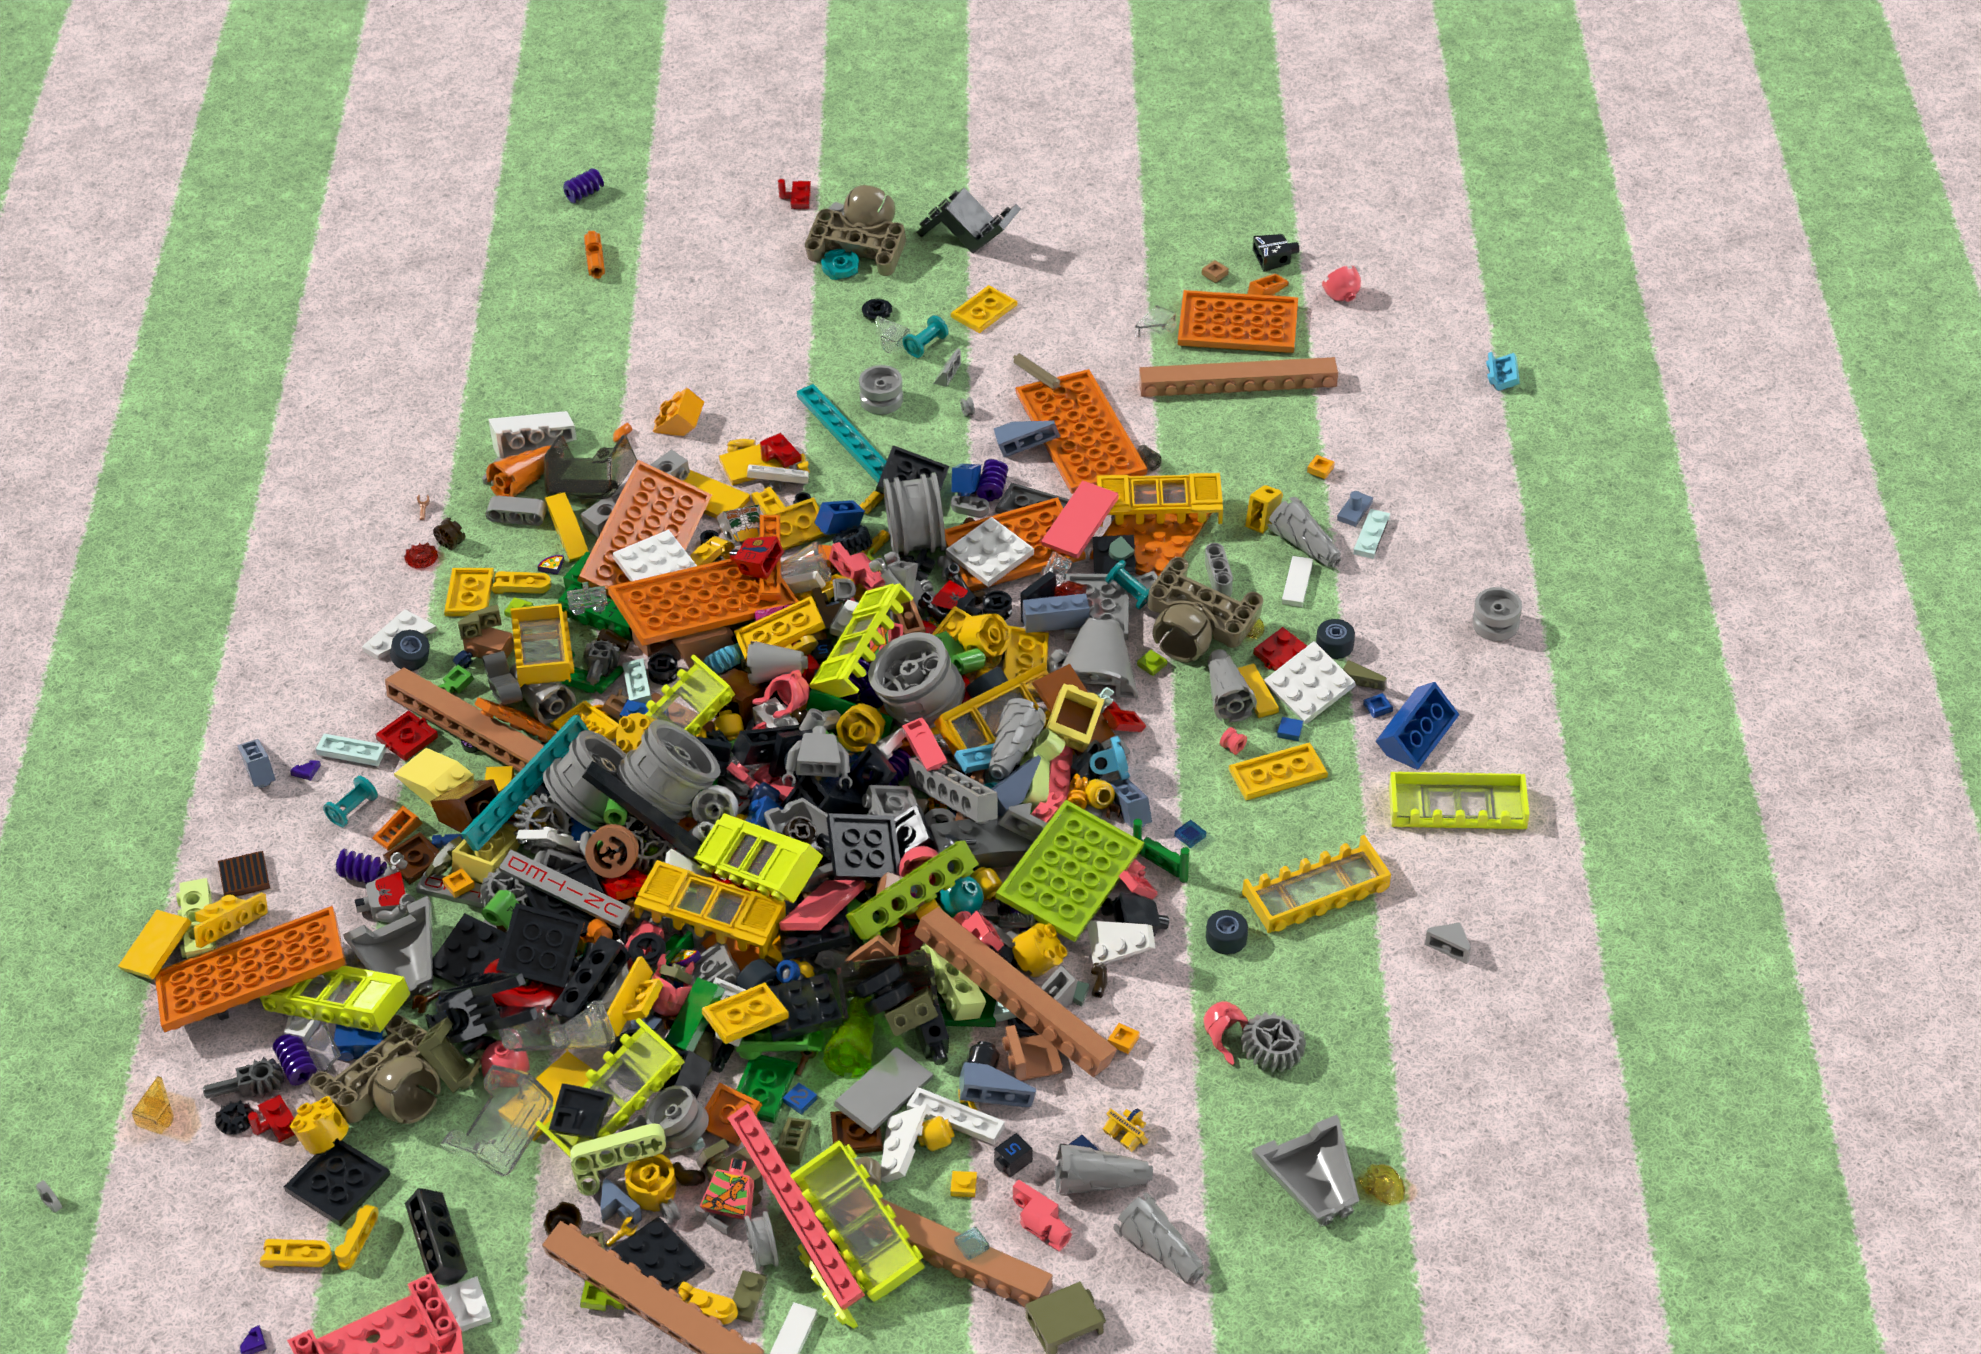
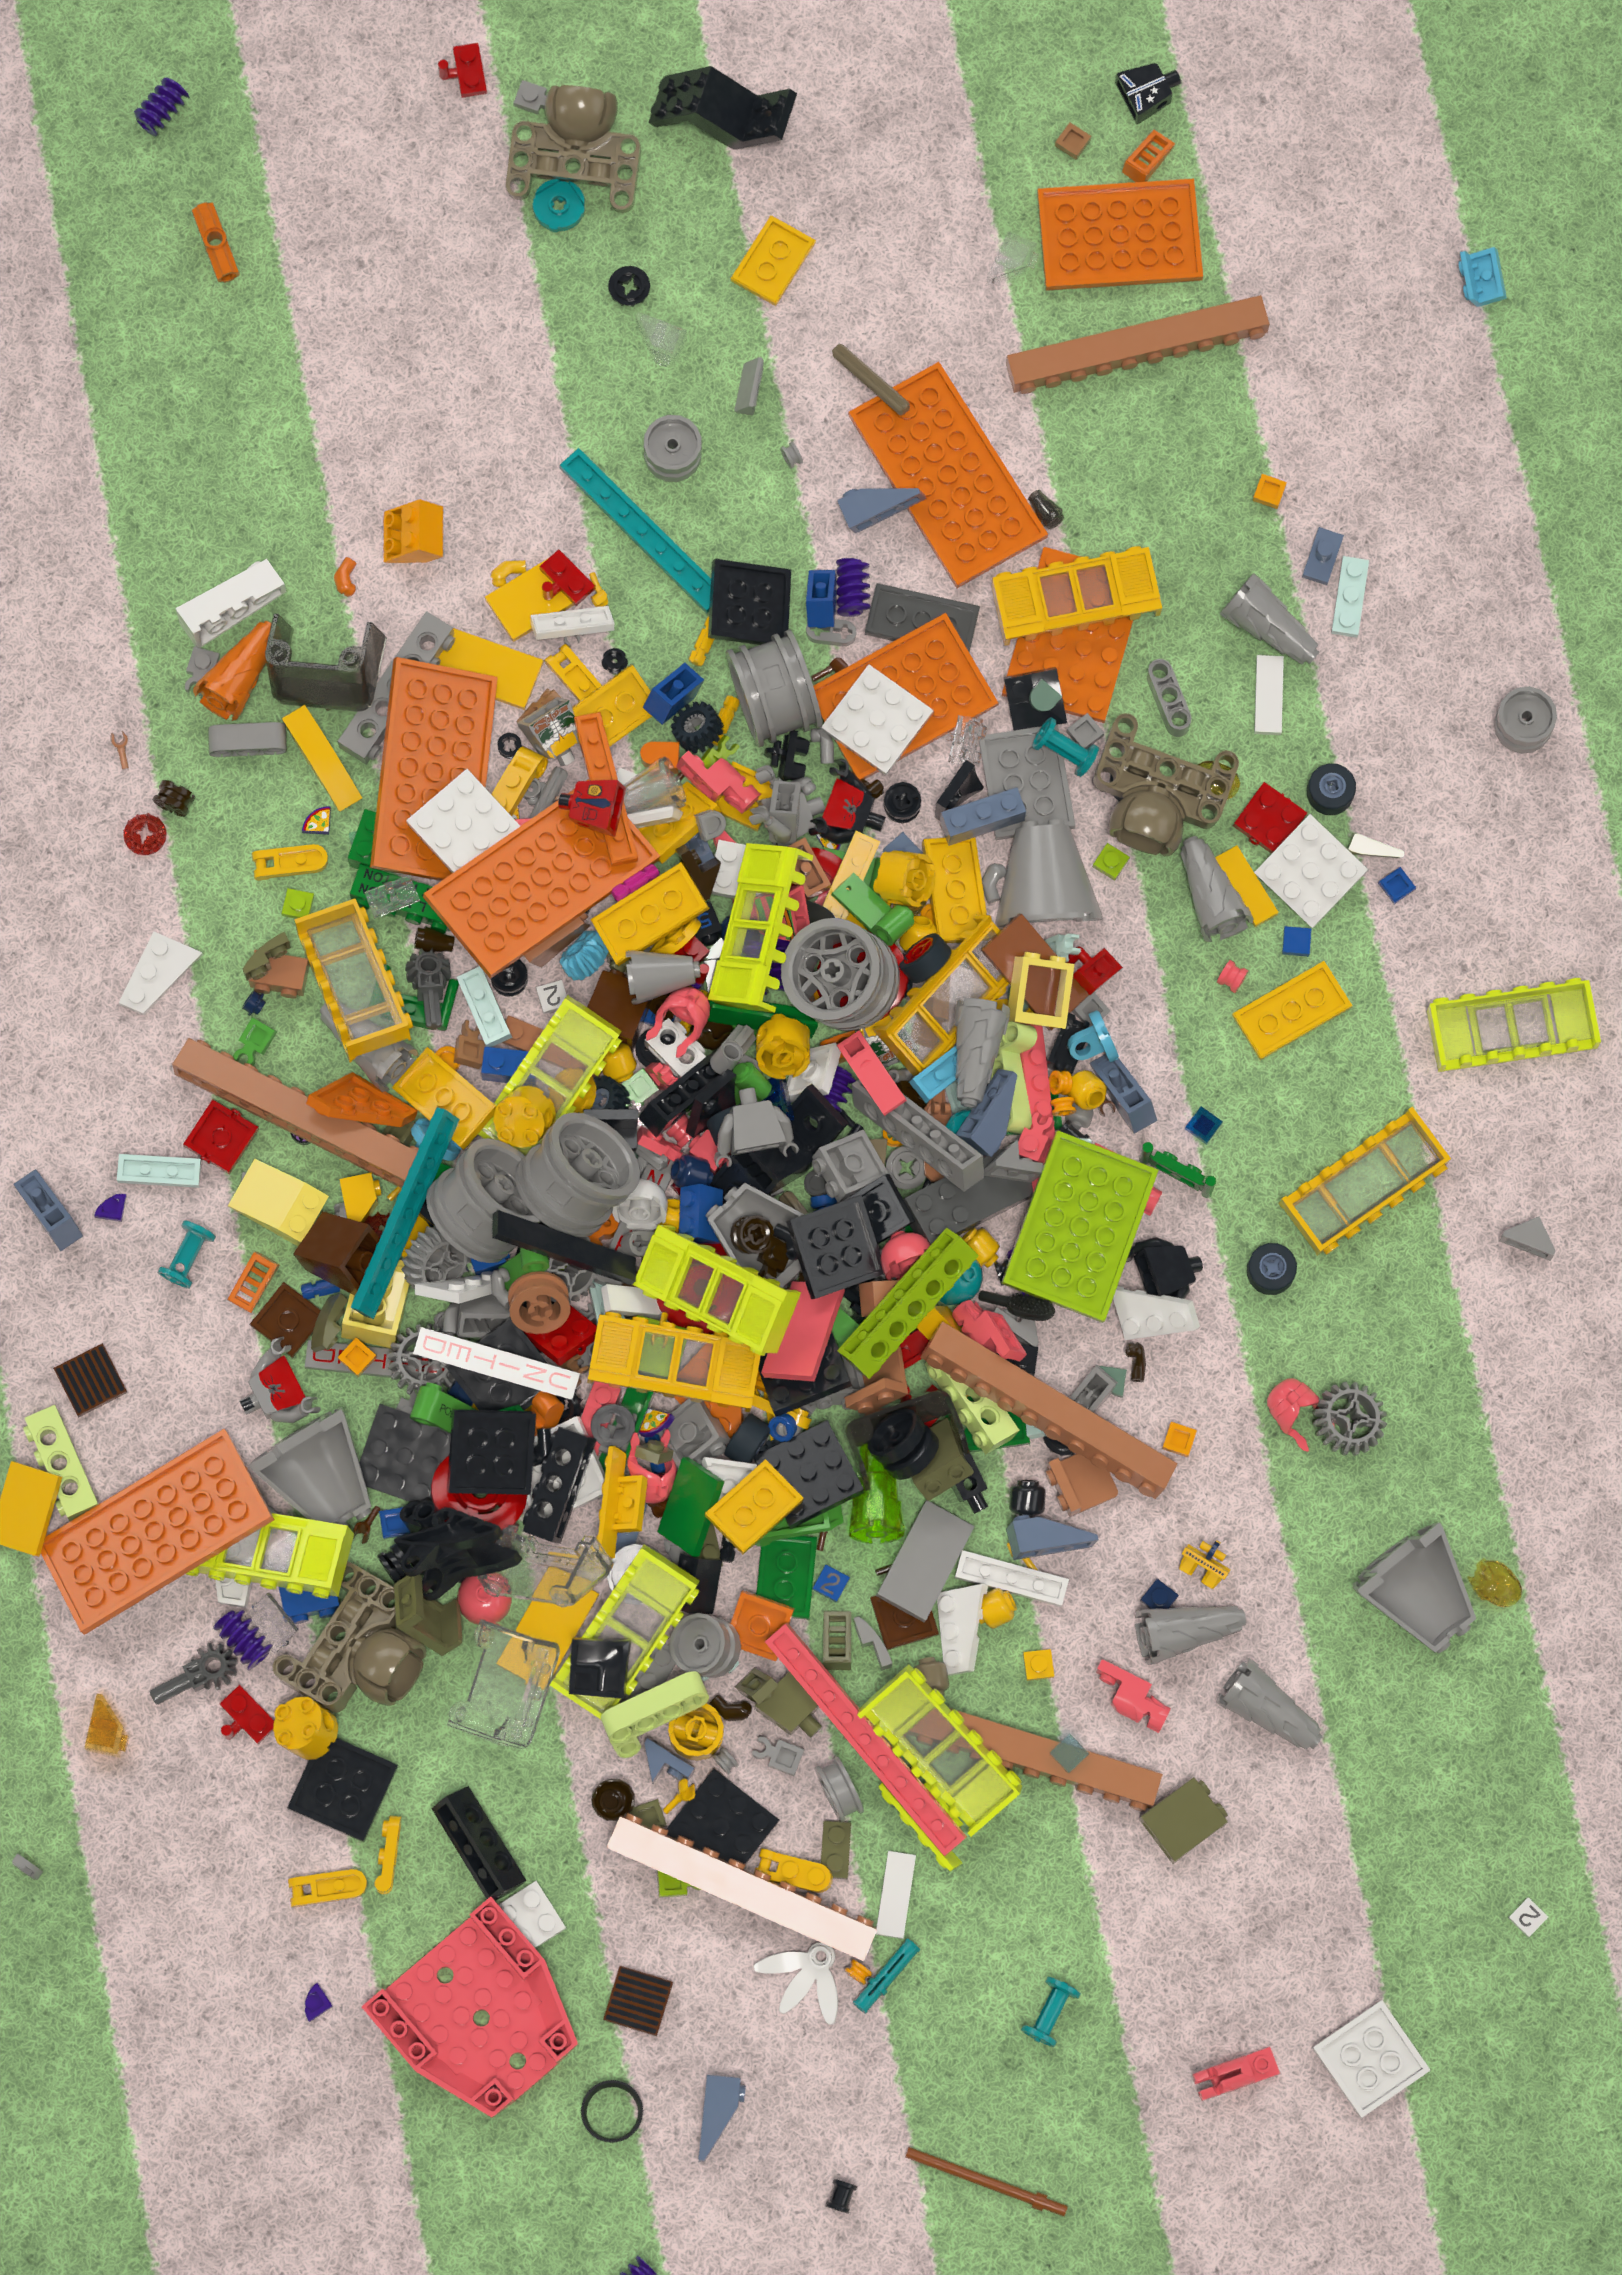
camera: 15 degrees left, 30 degrees up
(227, 916) = (97, 1458): yellow bracket -> none
(239, 1123) = (206, 1731): black gear -> none
(359, 867) = (230, 1351): dark purple piece -> none
(409, 650) = (192, 998): black wheel -> none
(468, 590) = (225, 885): yellow tile -> none
(501, 682) = (323, 1047): dark grey beam -> none
(730, 1192) = (792, 1738): torso -> none
(820, 1137) = (868, 1637): none -> light grey slope
(915, 344) = (698, 352): teal hose -> none
(953, 839) = (940, 1225): black hand -> none
(1013, 1155) = (1086, 1622): black brick -> none
(1038, 949) = (1063, 1342): yellow brick -> none
(1070, 588) = (991, 775): clear red bracket -> none
(1080, 519) = (984, 656): coral tile -> none
(1138, 884) = (1159, 1224): coral plate -> none
(1263, 502) = (1210, 582): yellow torso -> none
(1343, 284) = (1252, 148): coral cylinder -> none
(1418, 726) = (1450, 915): blue slope -> none

